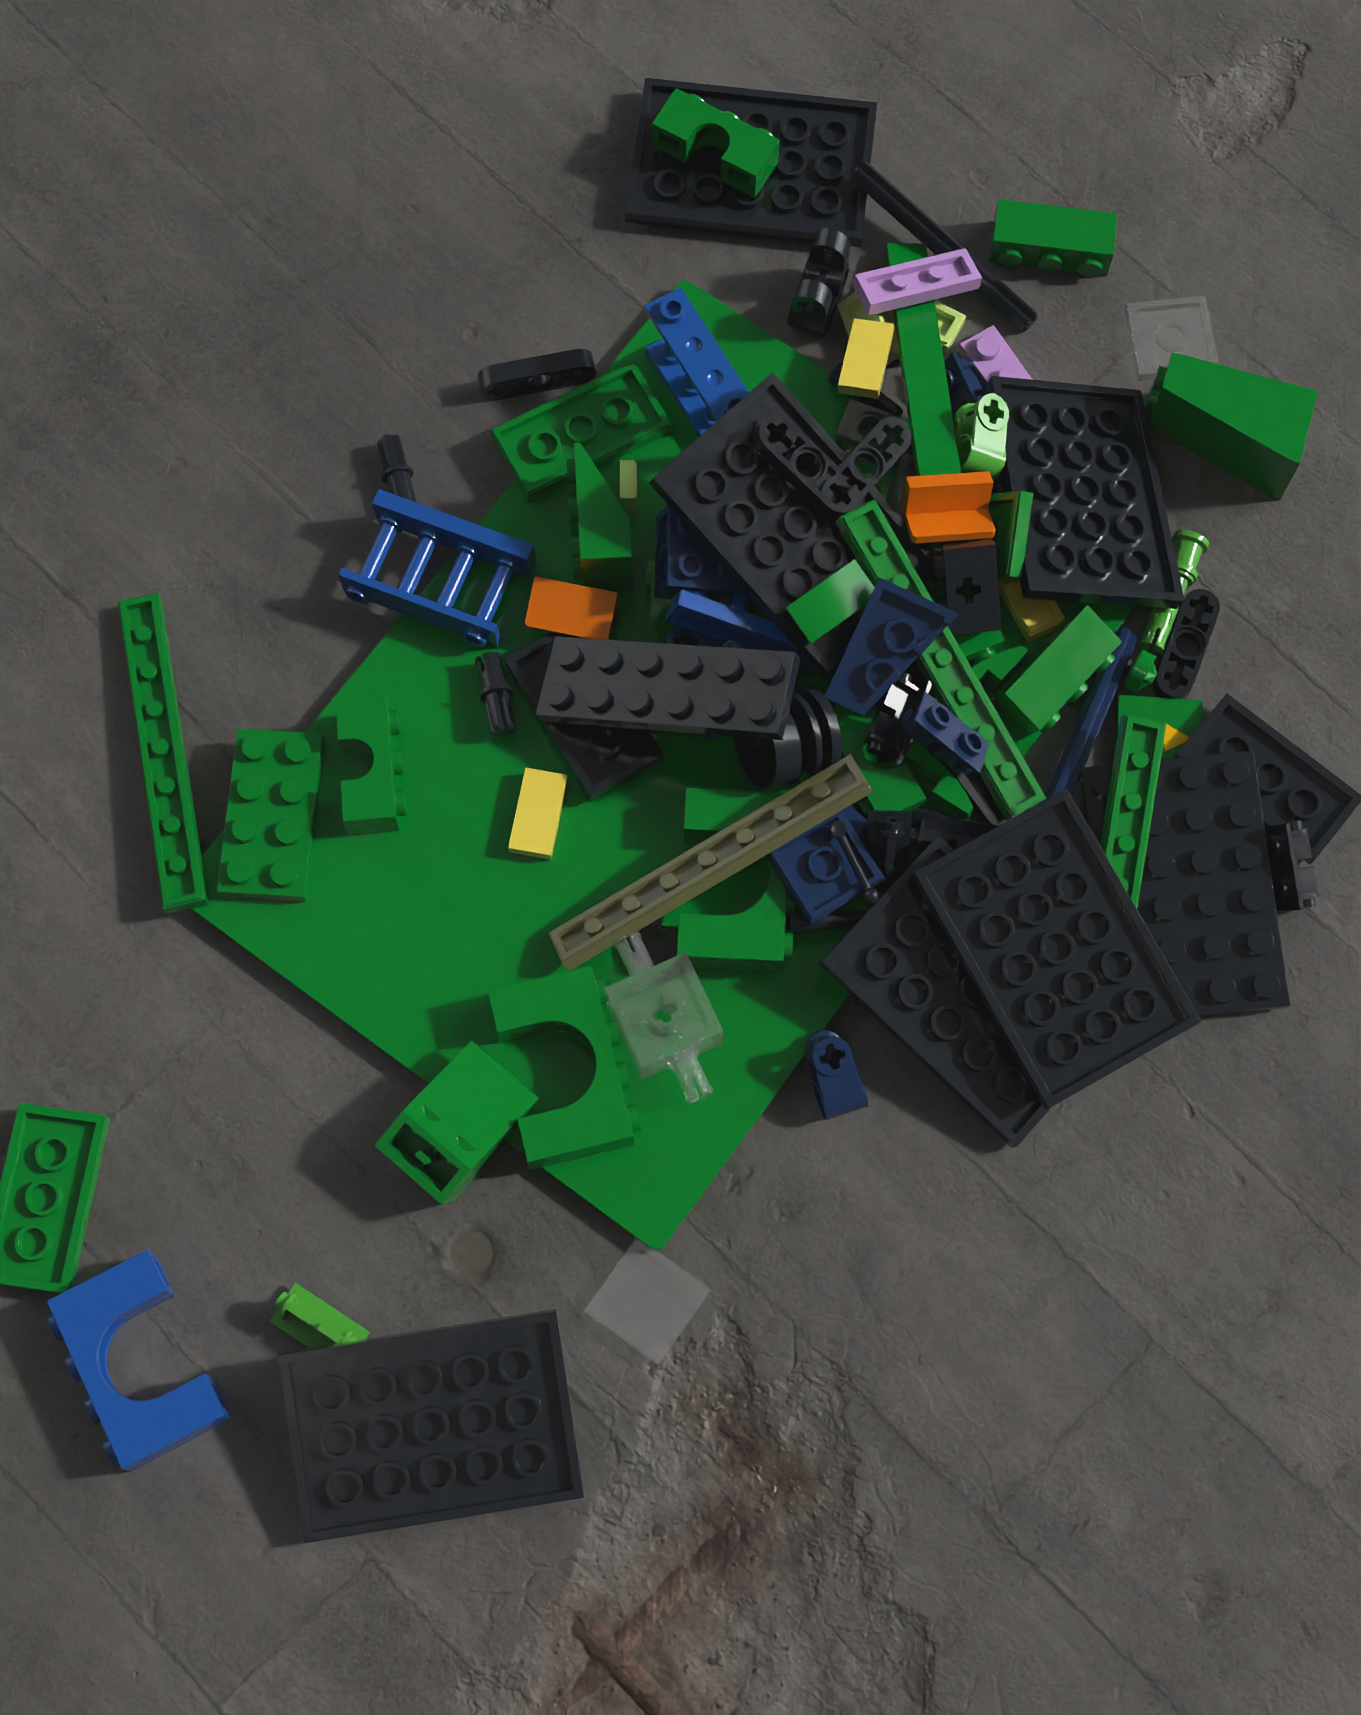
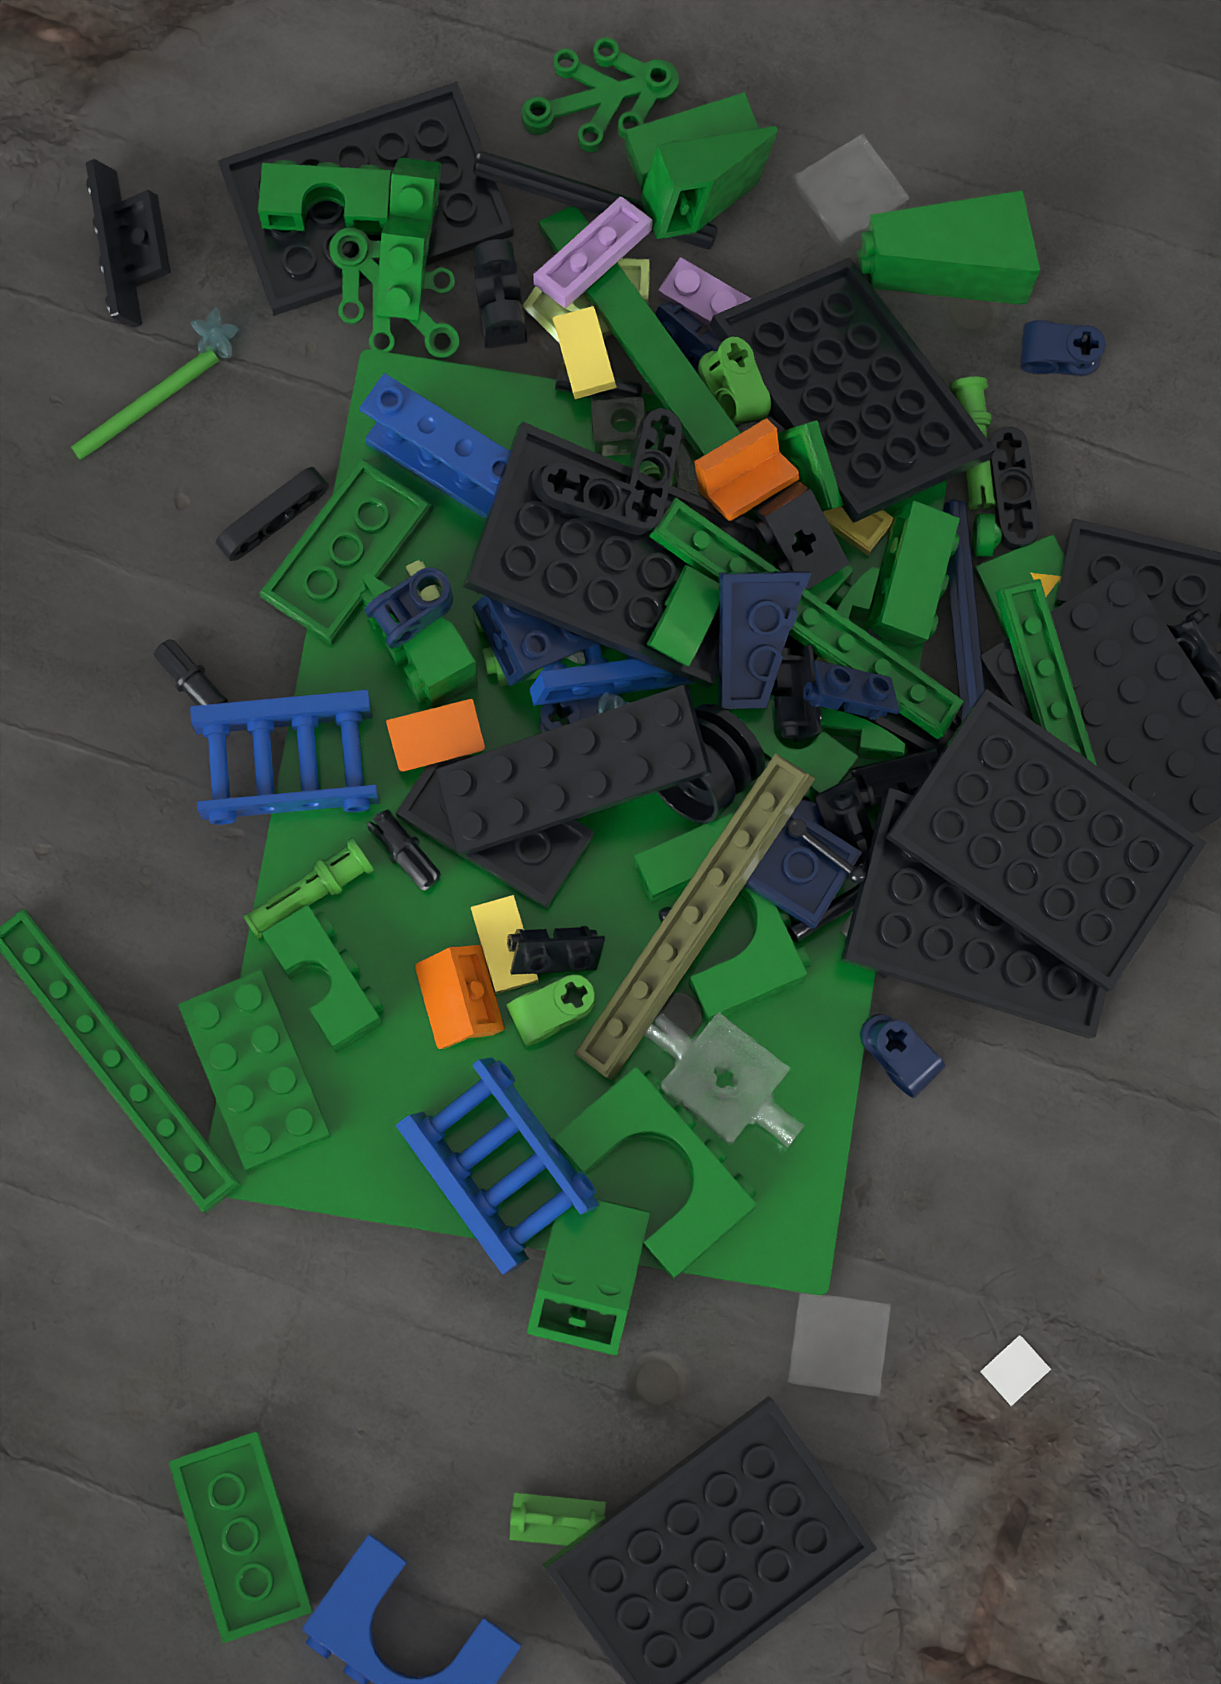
camera: 30 degrees left, 5 degrees up
(388, 977) = (453, 1170): none -> blue fence
(415, 685) = (326, 878): none -> bright green pin
(477, 836) = (459, 995): none -> orange panel
(481, 242) = (144, 404): none -> bright green bar
(536, 108) = (129, 241): none -> black bracket
(543, 885) = (543, 1013): none -> bright green piece
(568, 213) = (215, 335): none -> clear light blue plant
(584, 843) = (568, 951): none -> black hinge
(597, 483) = (408, 608): none -> dark blue piece
(731, 238) = (370, 269): none -> green plant
(763, 200) = (407, 237): none -> green arch
(793, 1406) = (1015, 1370): none -> white sticker
(998, 168) = (605, 93): none -> green plant
(1045, 263) = (702, 178): none -> green slope
(1286, 544) = (1056, 350): none -> dark blue piece

